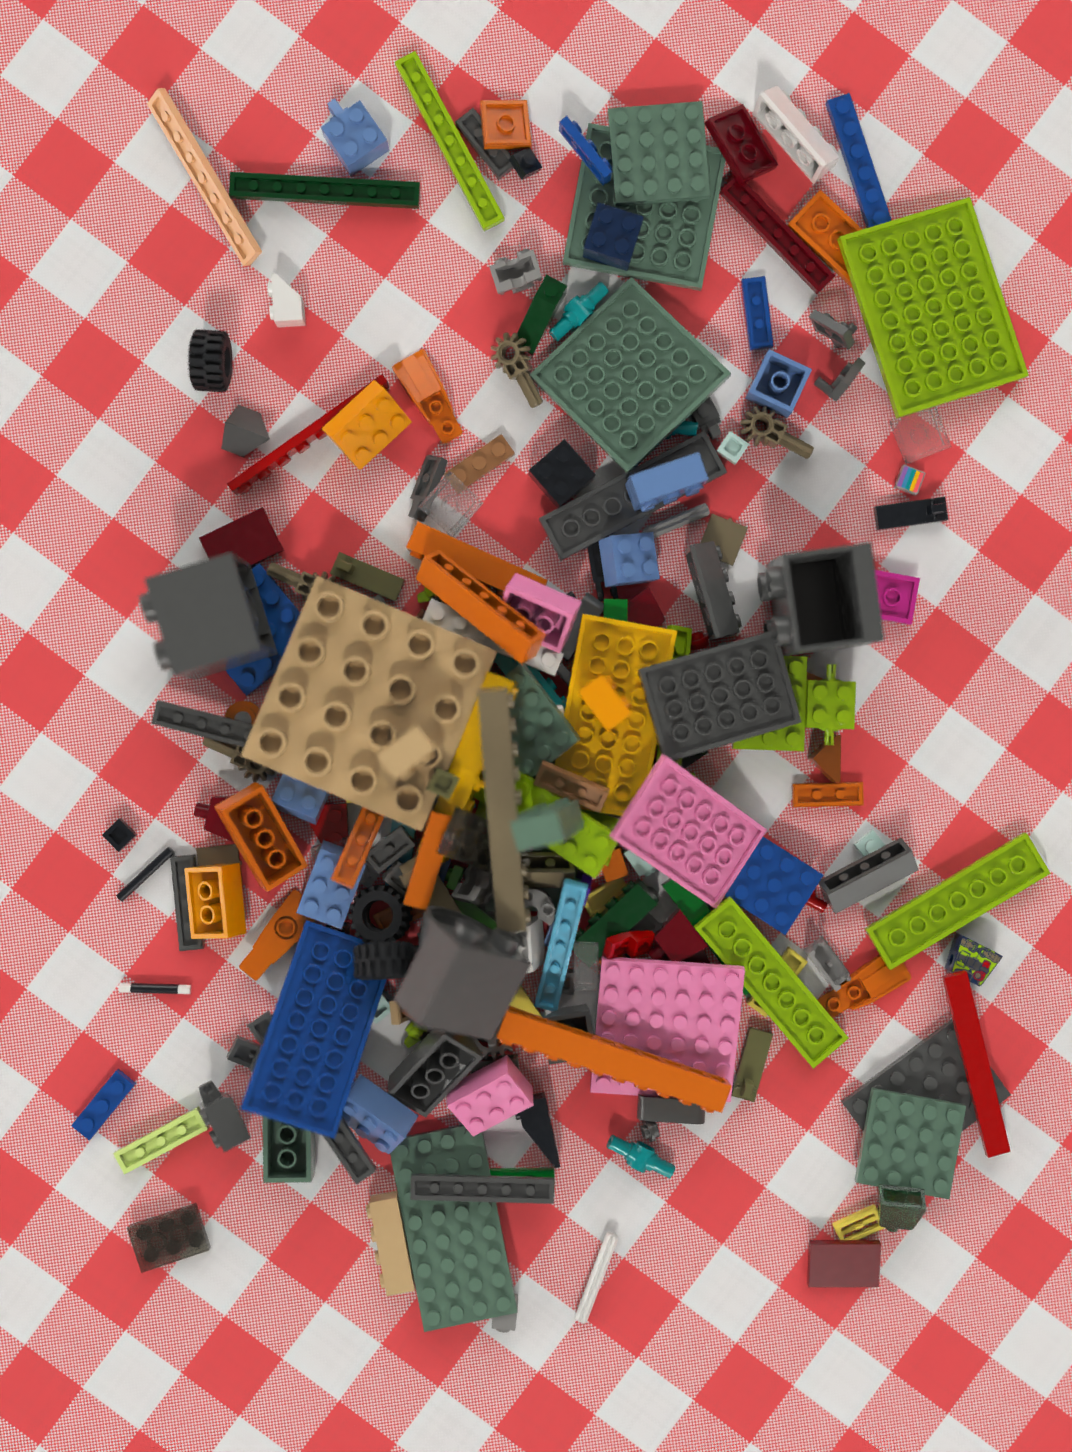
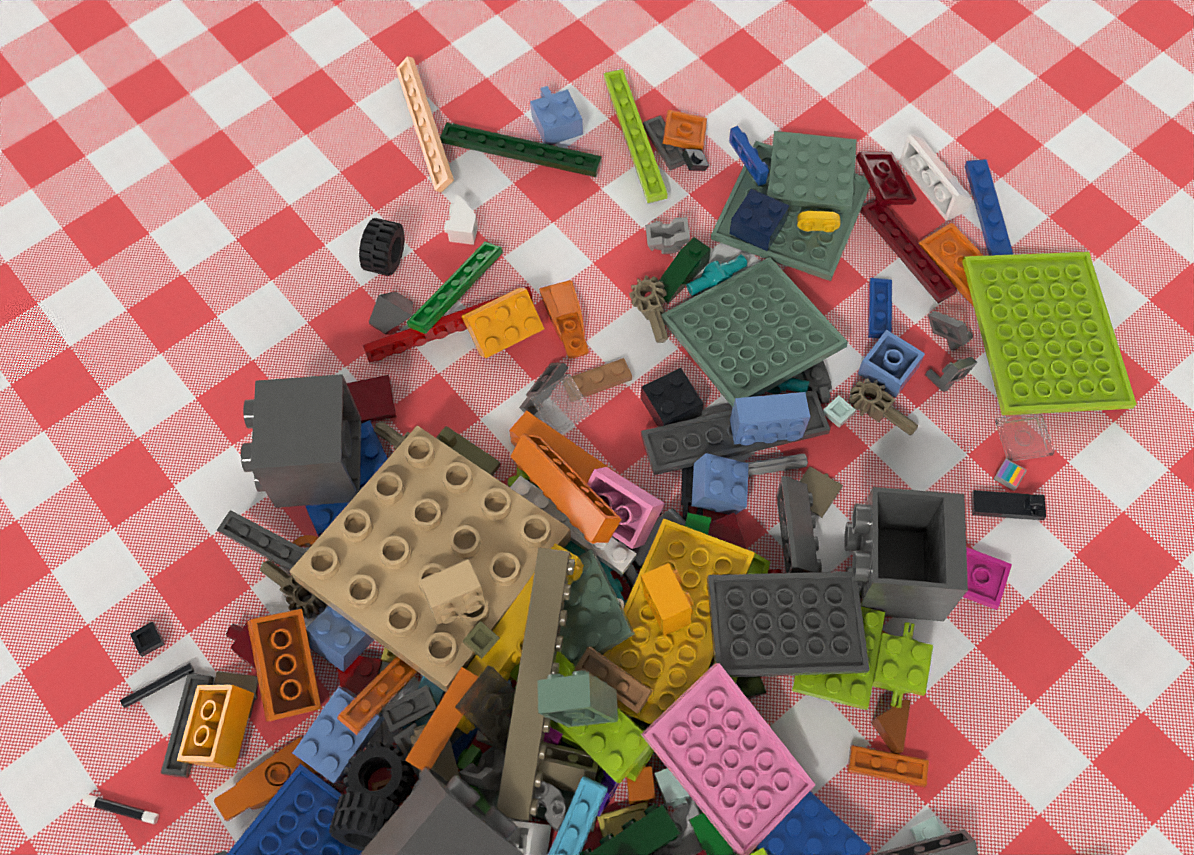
camera: 15 degrees right, 25 degrees down
(303, 389) = (454, 287): none -> green tile
(684, 222) = (818, 221): none -> yellow plate

